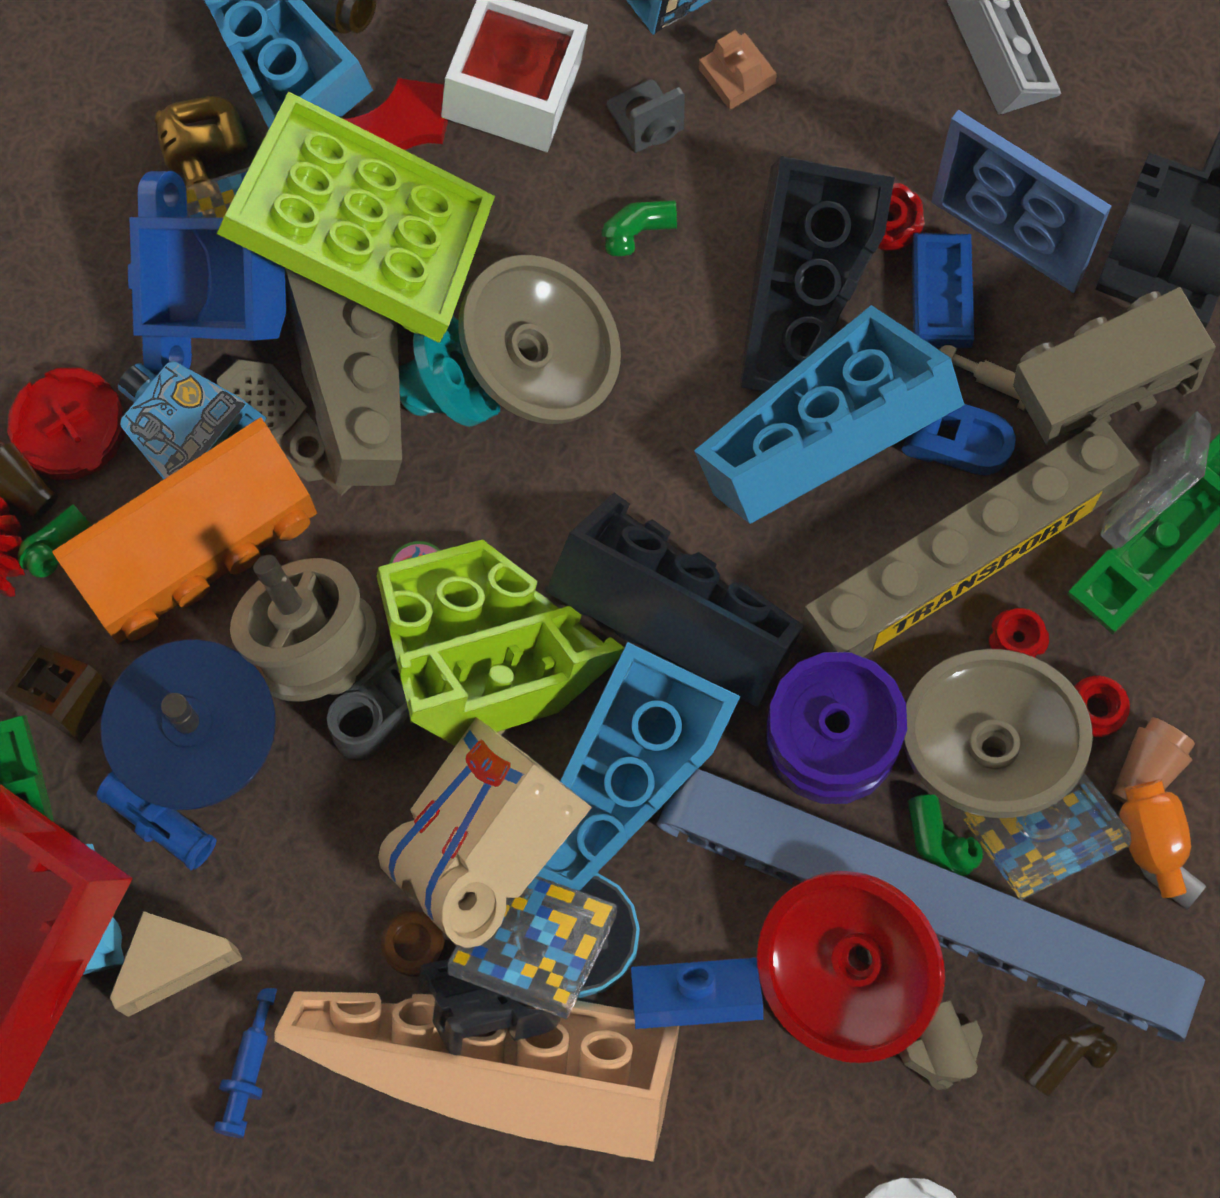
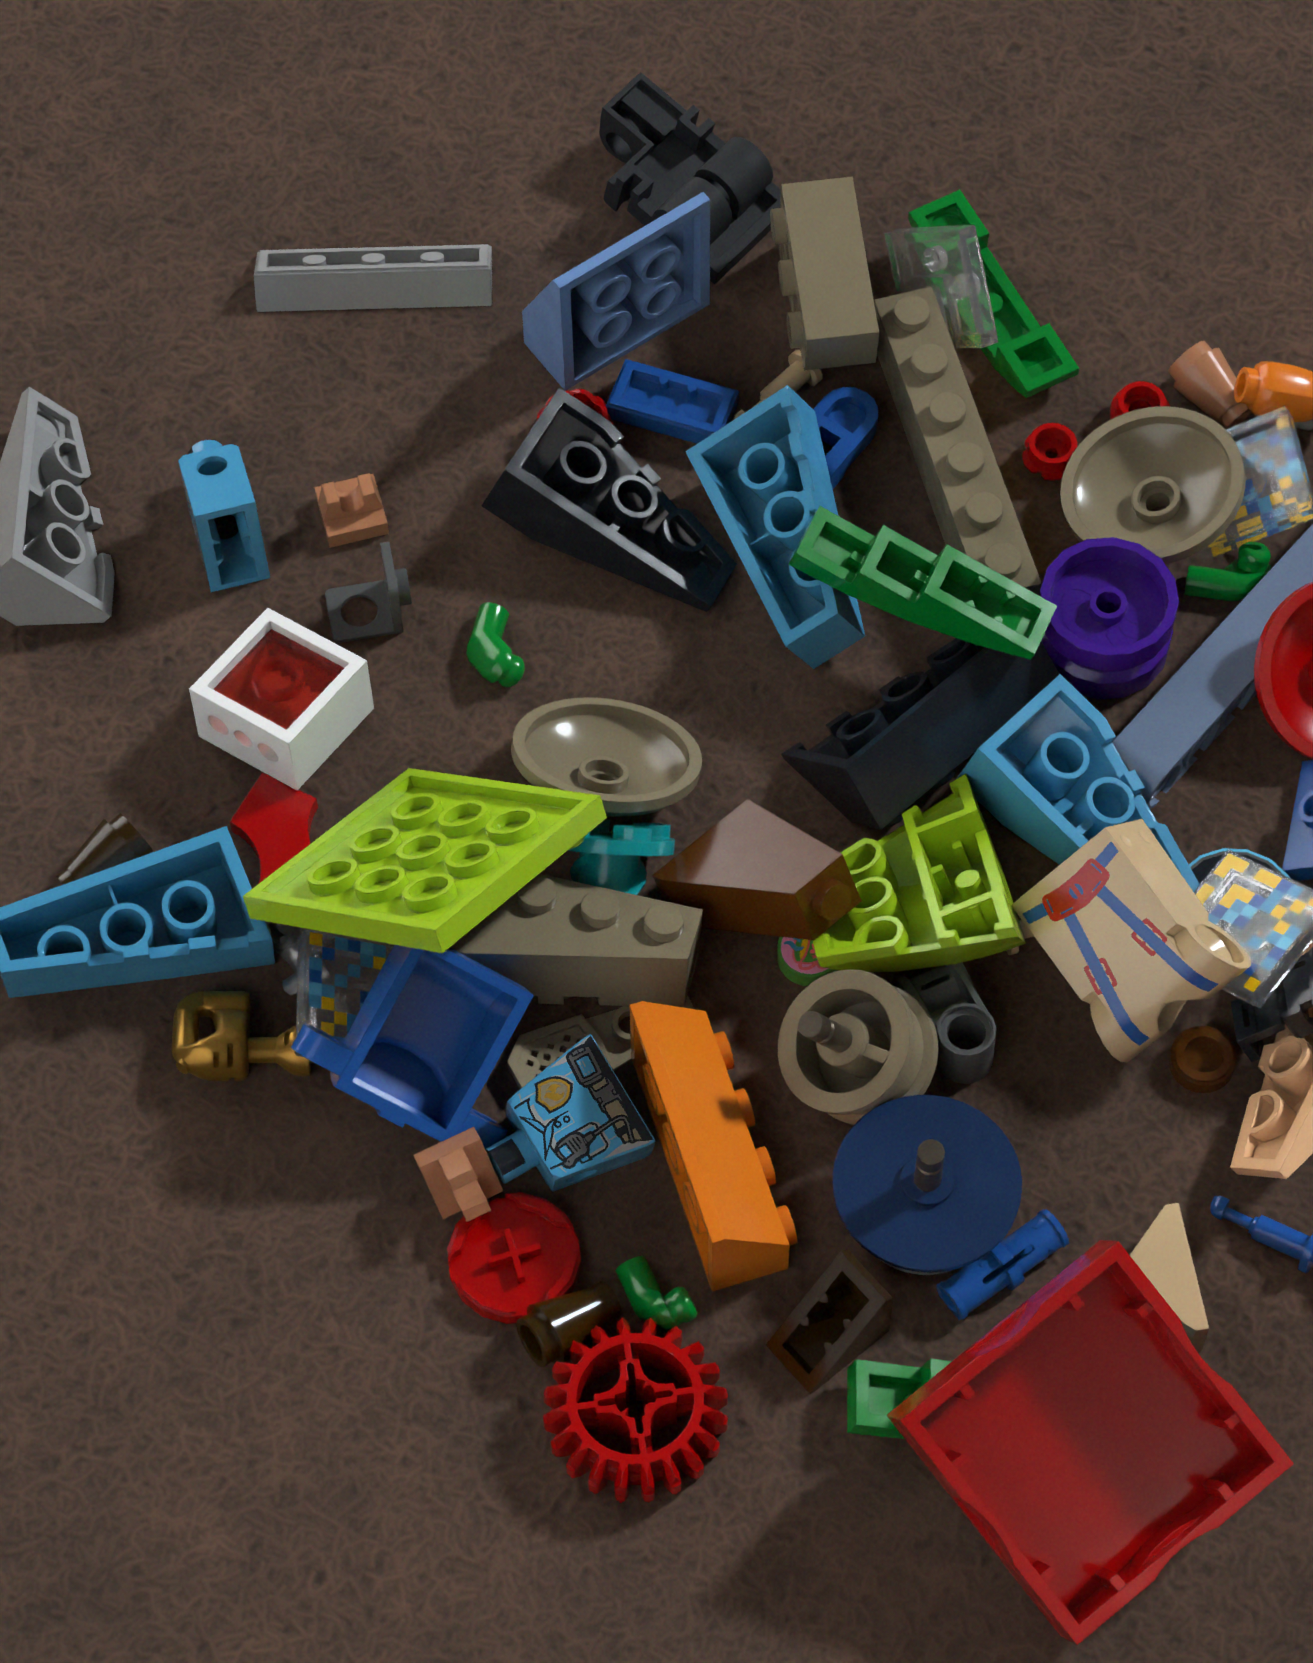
camera: 75 degrees left, 10 degrees down
(110, 350) = (459, 1175): none -> nougat tile
(460, 501) = (760, 877): none -> reddish brown slope
(779, 542) = (928, 589): none -> green slope

